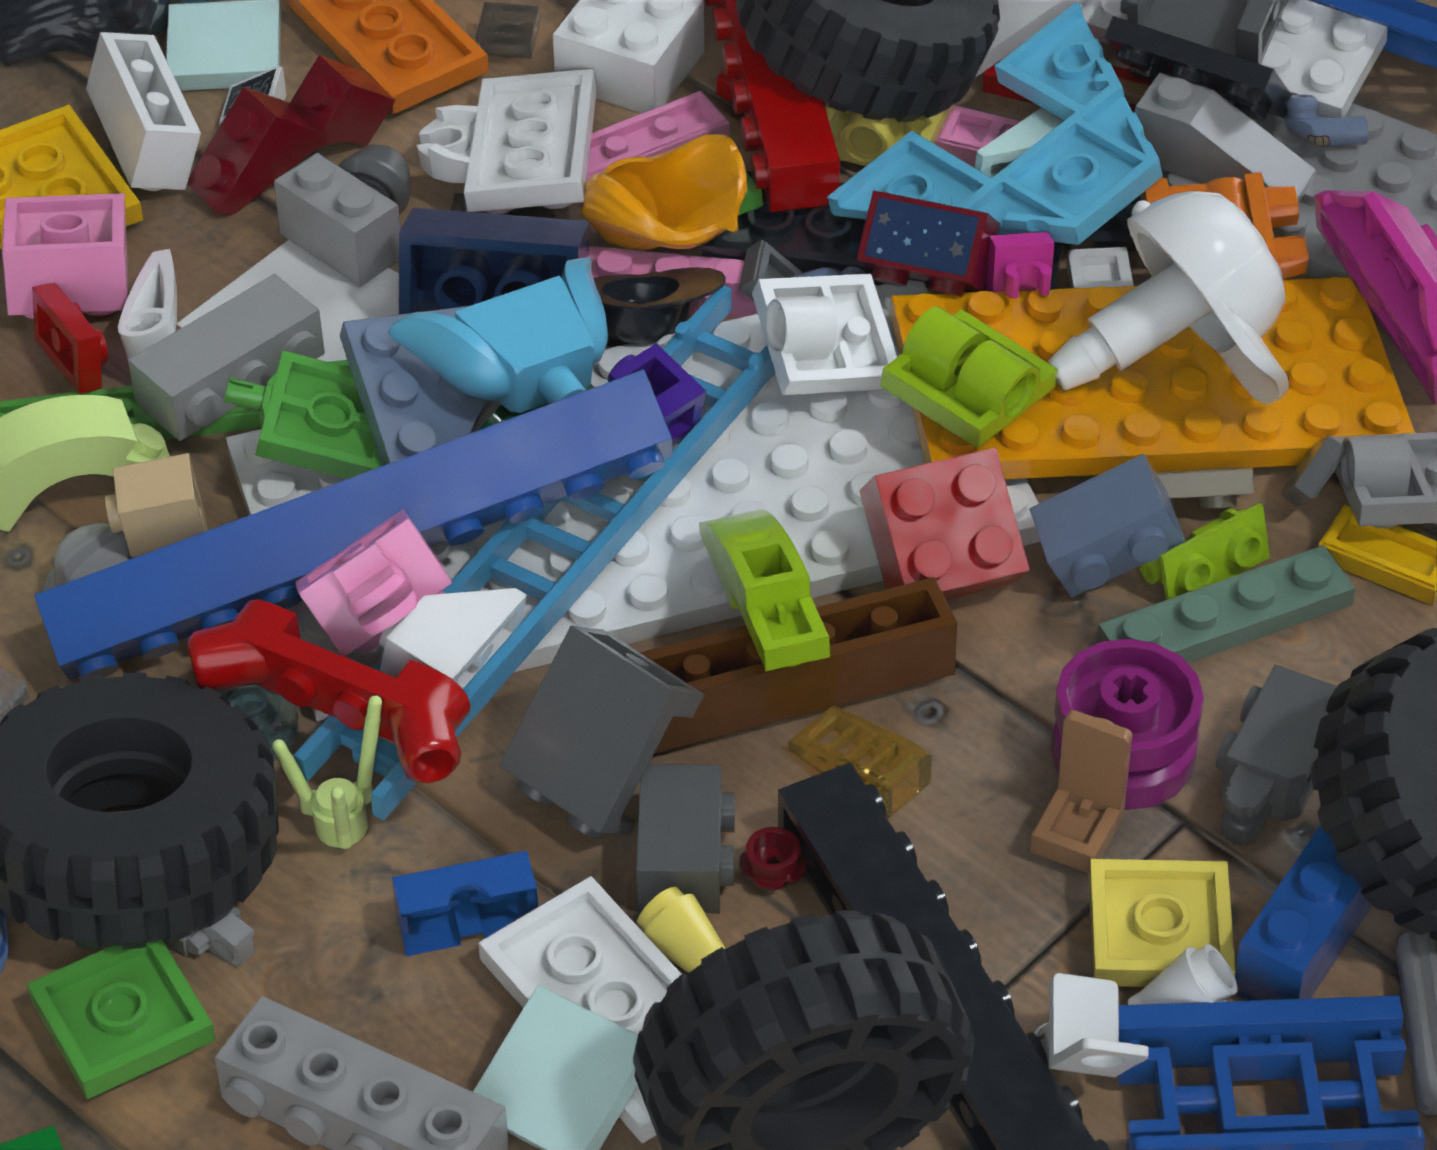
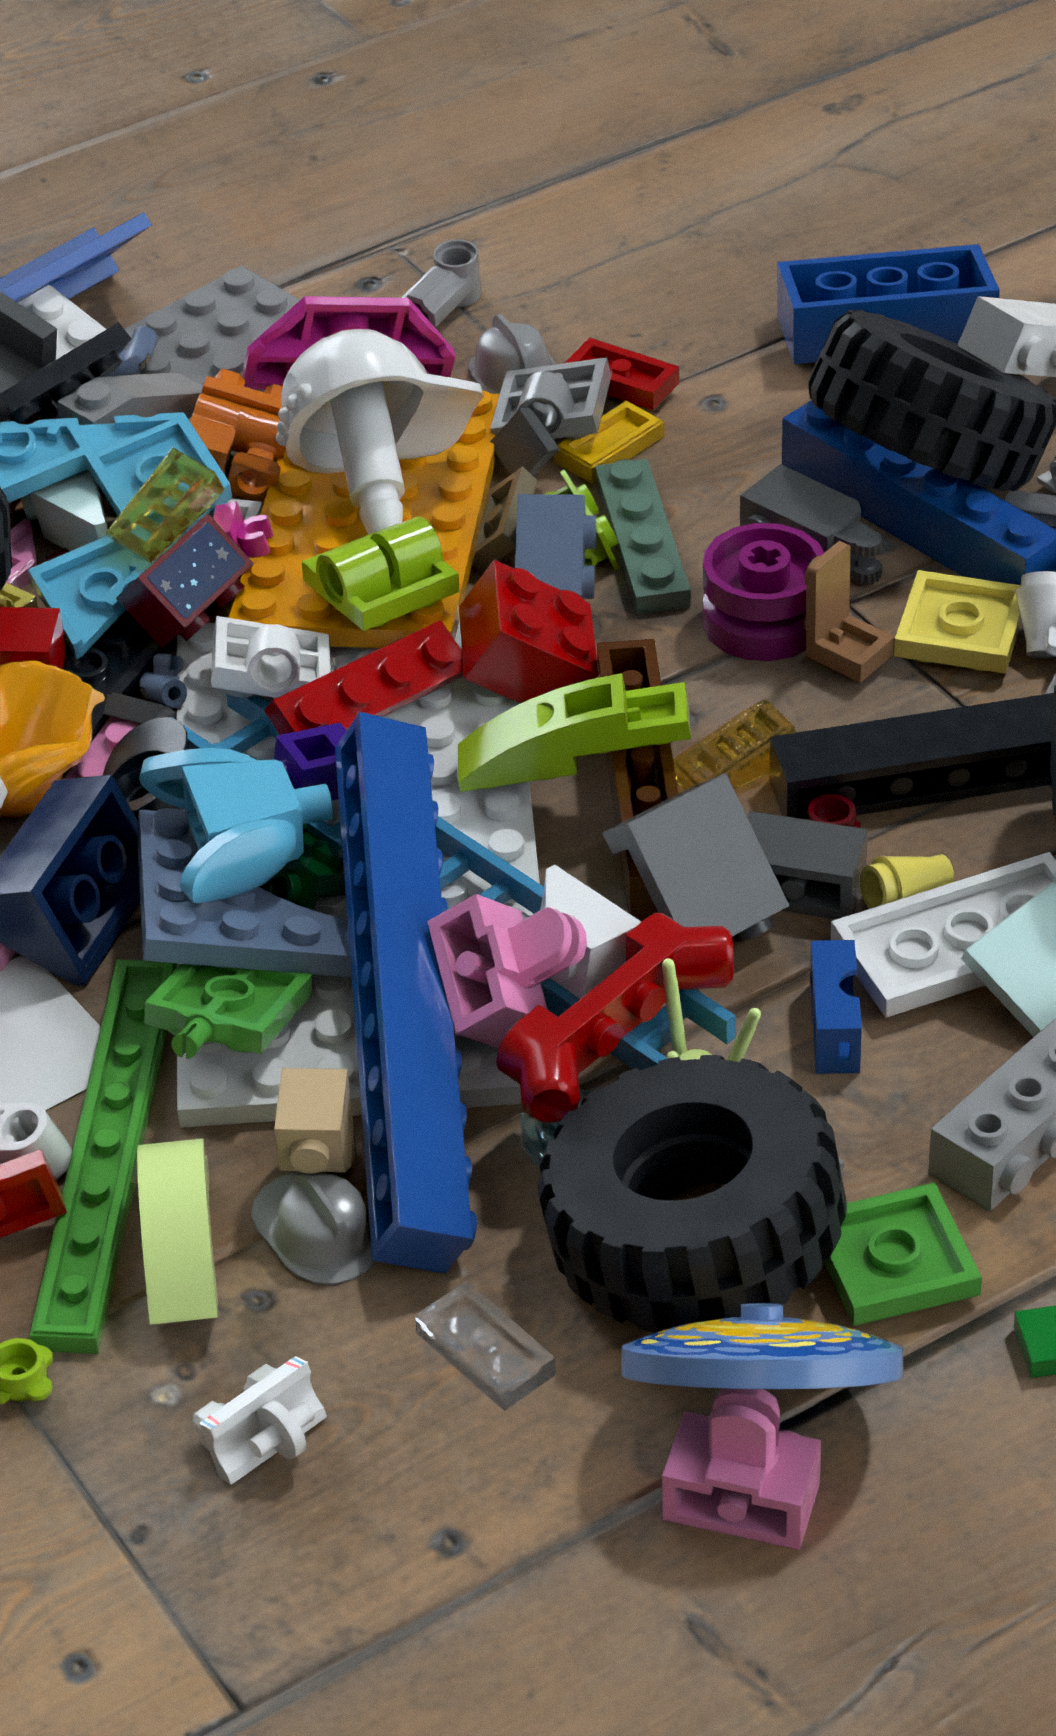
camera: 75 degrees left, 5 degrees down
(188, 372) = (93, 1075): light grey brick -> none
(800, 411) = (373, 682): none -> red plate
(1034, 192) = (163, 483): none -> clear yellow slope

